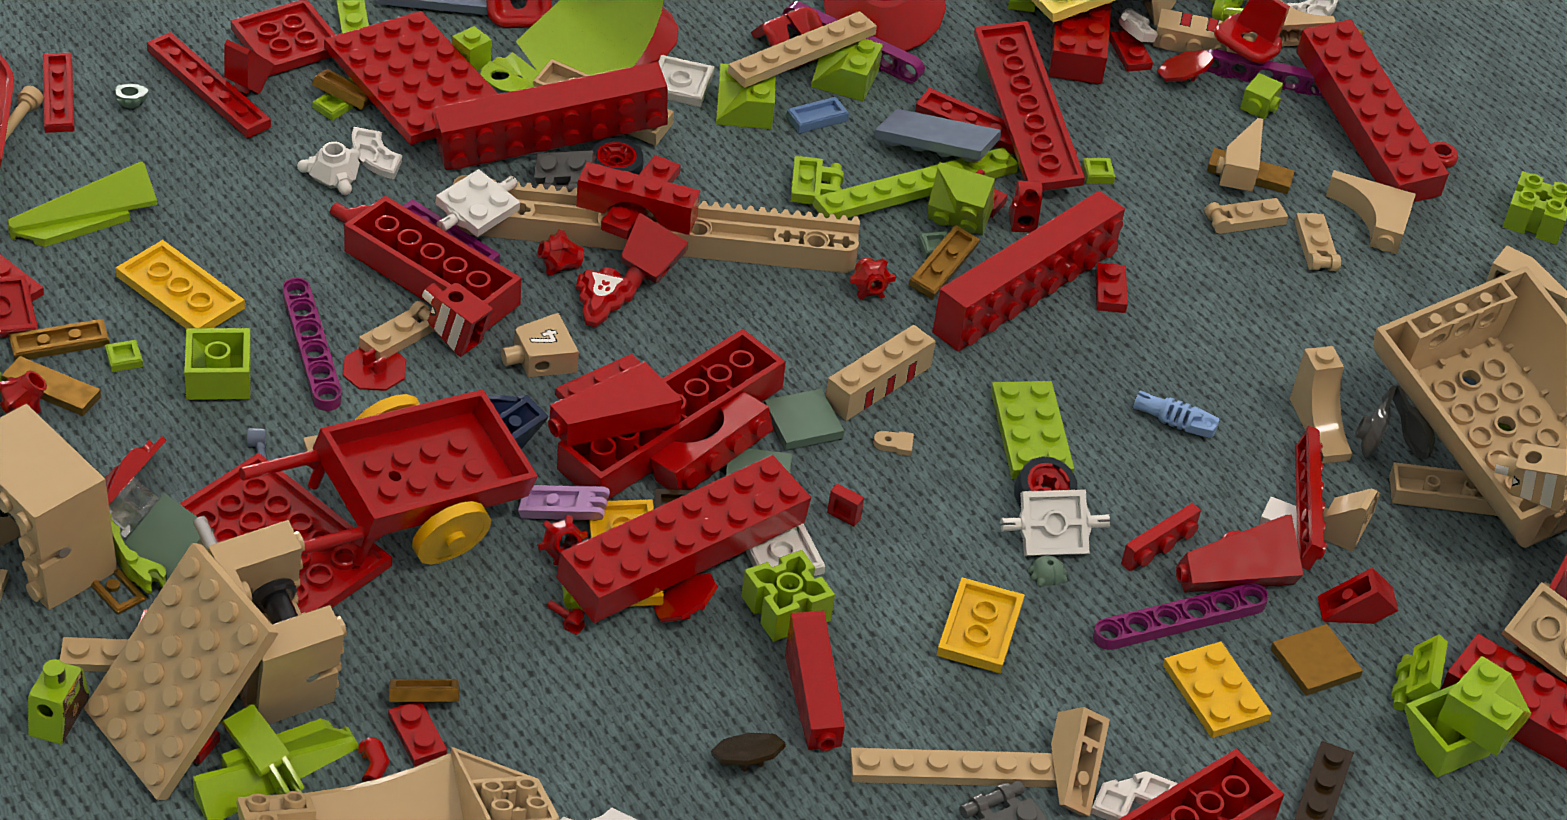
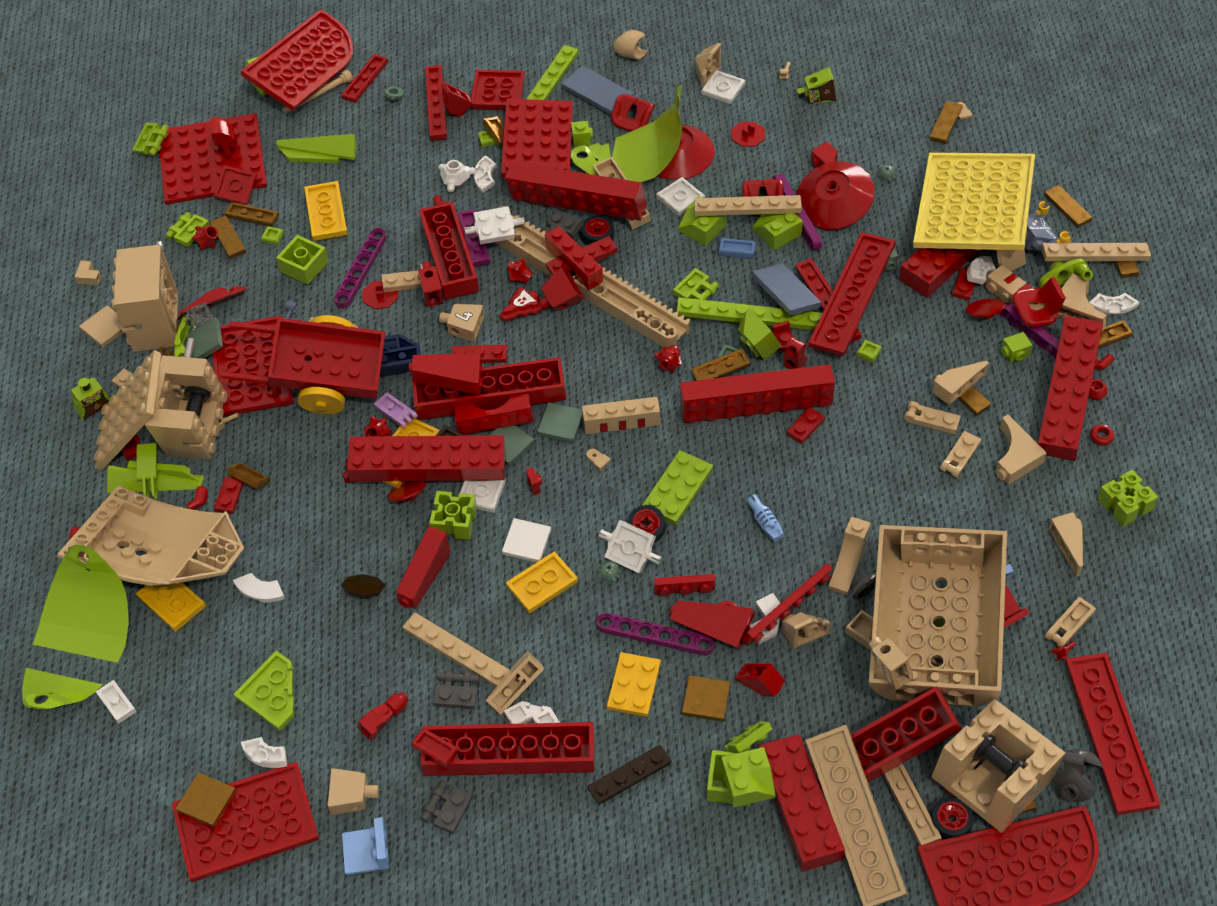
camera: 45 degrees right, 10 degrees up
(907, 584) = (526, 540): none -> white tile

